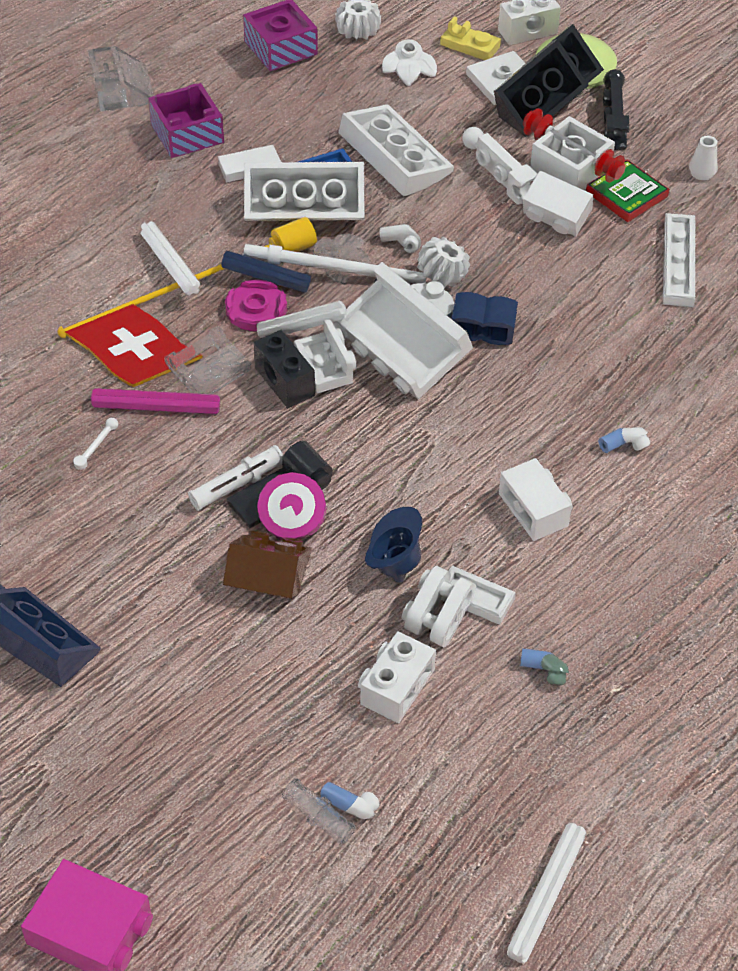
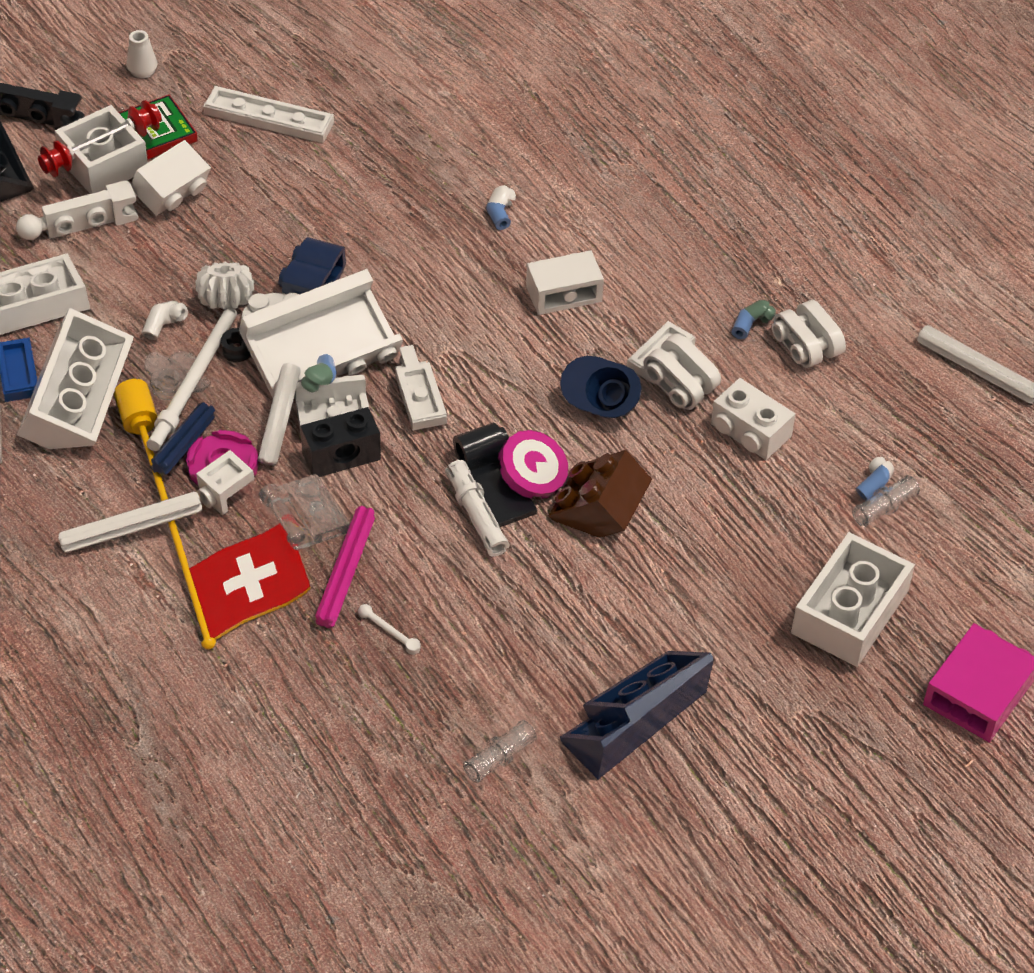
camera: 80 degrees left, 0 degrees up
(168, 784) = (852, 599): none -> white brick
(221, 300) = (222, 480): none -> white bracket
(339, 329) = (319, 374): none -> sand green arm
(366, 414) = (419, 391): none -> white hinge
(531, 714) = (809, 334): none -> white brick

